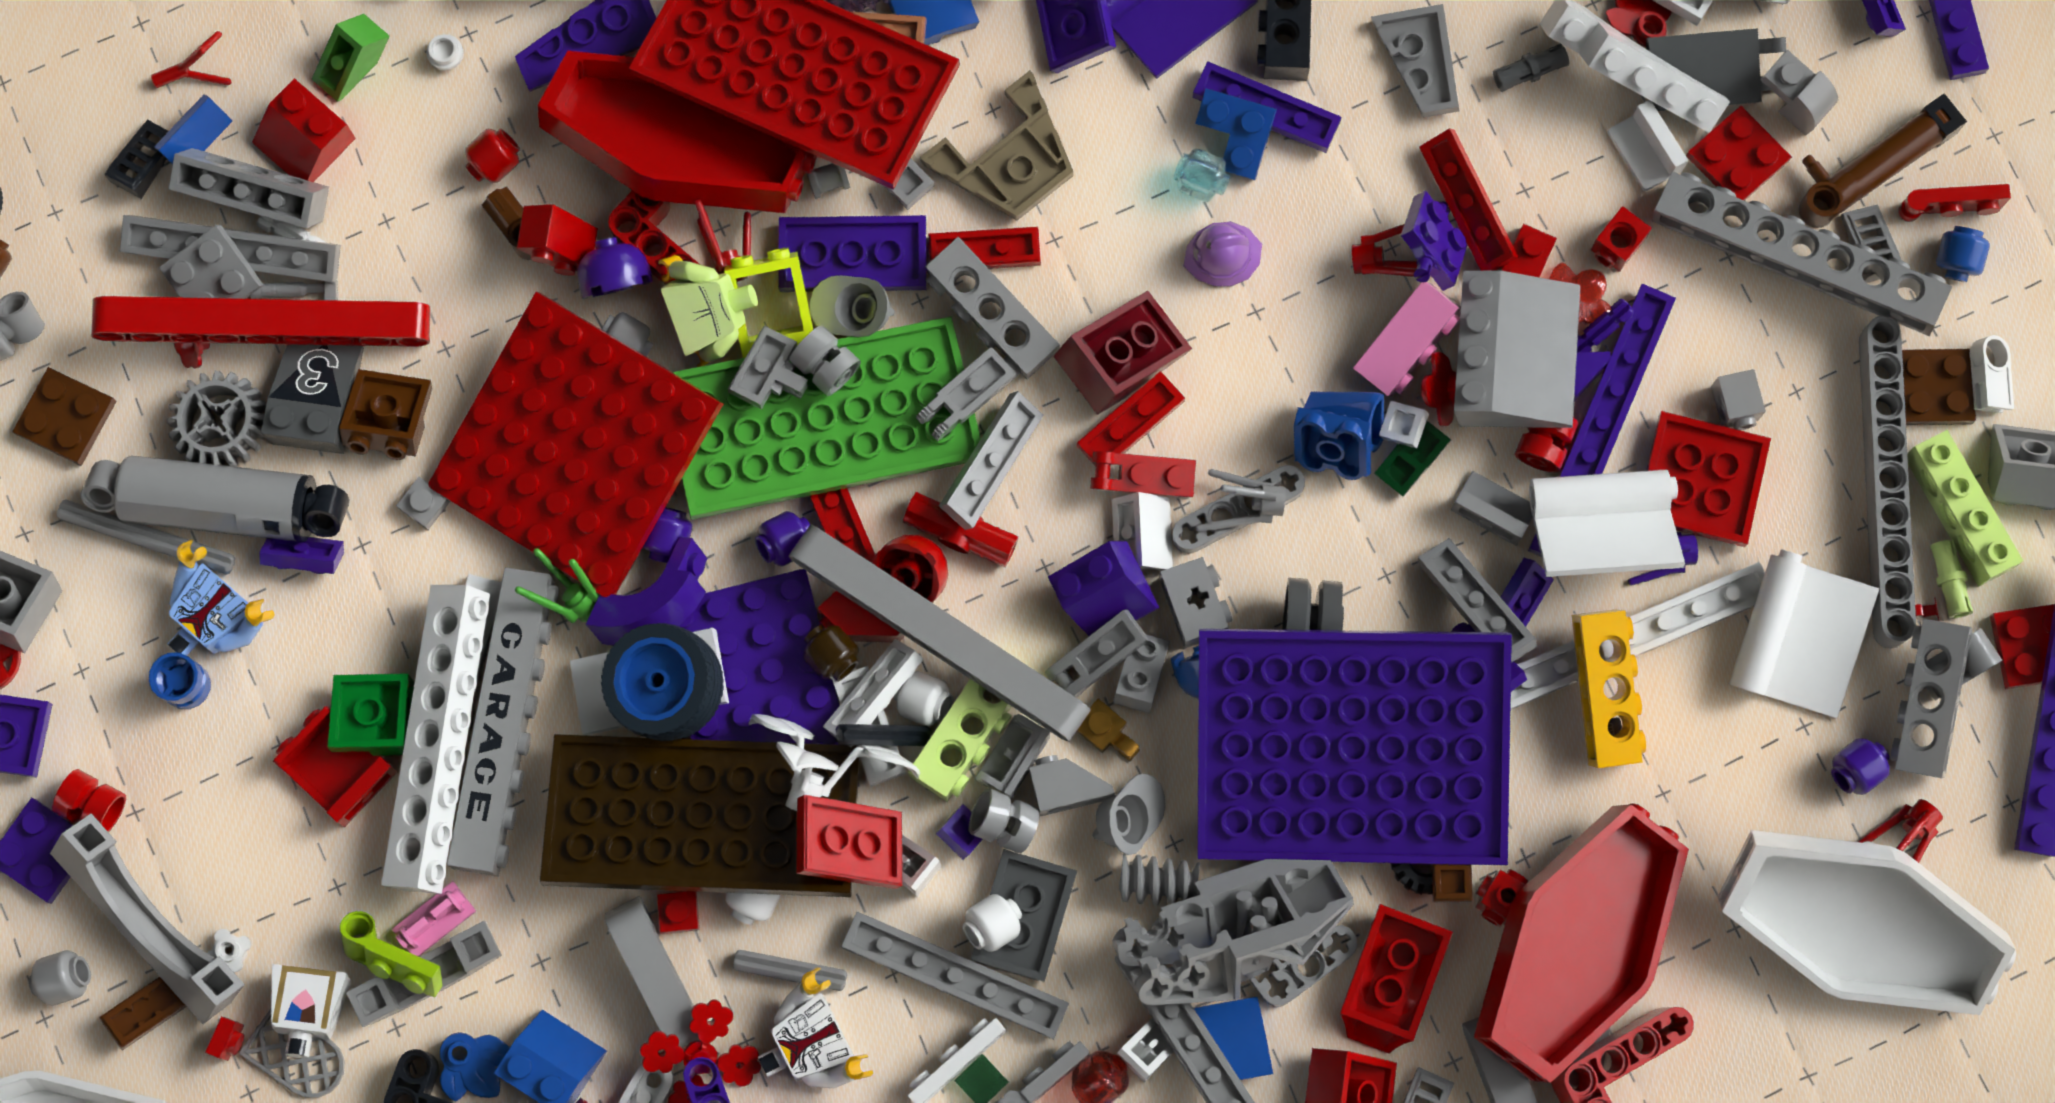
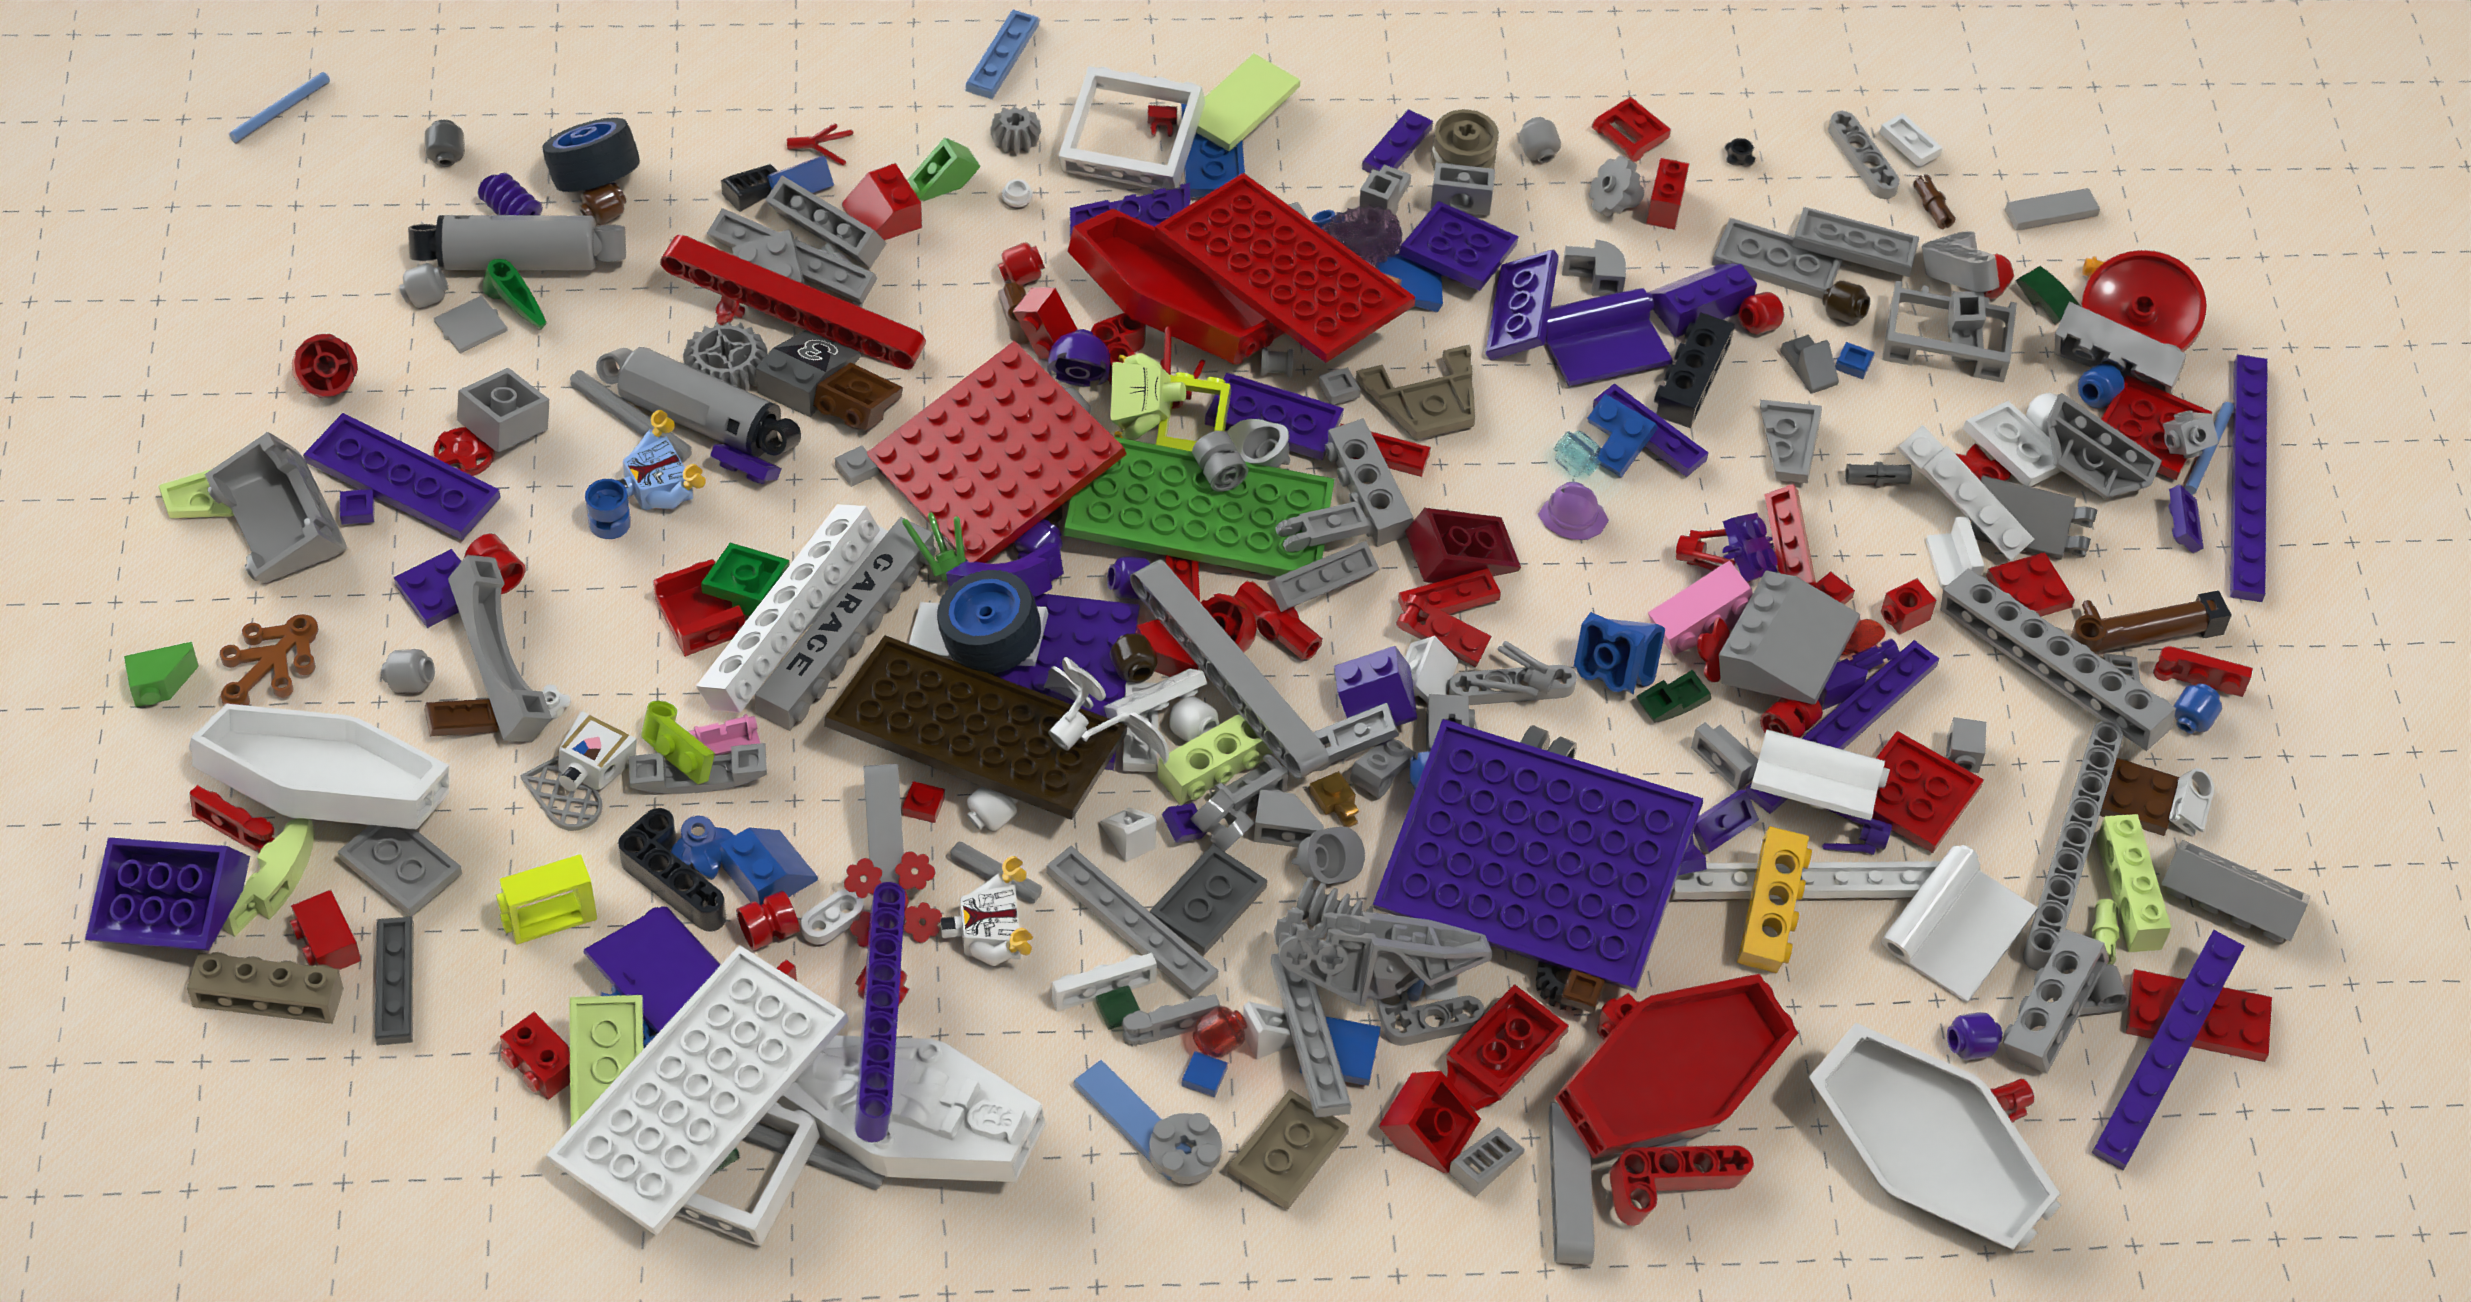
camera: 15 degrees right, 25 degrees down
(64, 416) = (609, 321): reddish brown plate -> none
(226, 1039) = (515, 756): red plate -> none
(768, 370) = (1171, 453): light grey hinge -> none
(849, 842) = (1088, 775): tile -> none
(882, 735) = (1127, 704): black axle -> none
(992, 923) = (1180, 883): white head -> none
(1403, 424) = (1674, 666): white plate -> none
(1474, 596) = (1676, 776): light grey plate -> none
(1805, 93) = (2103, 554): light grey brick -> none

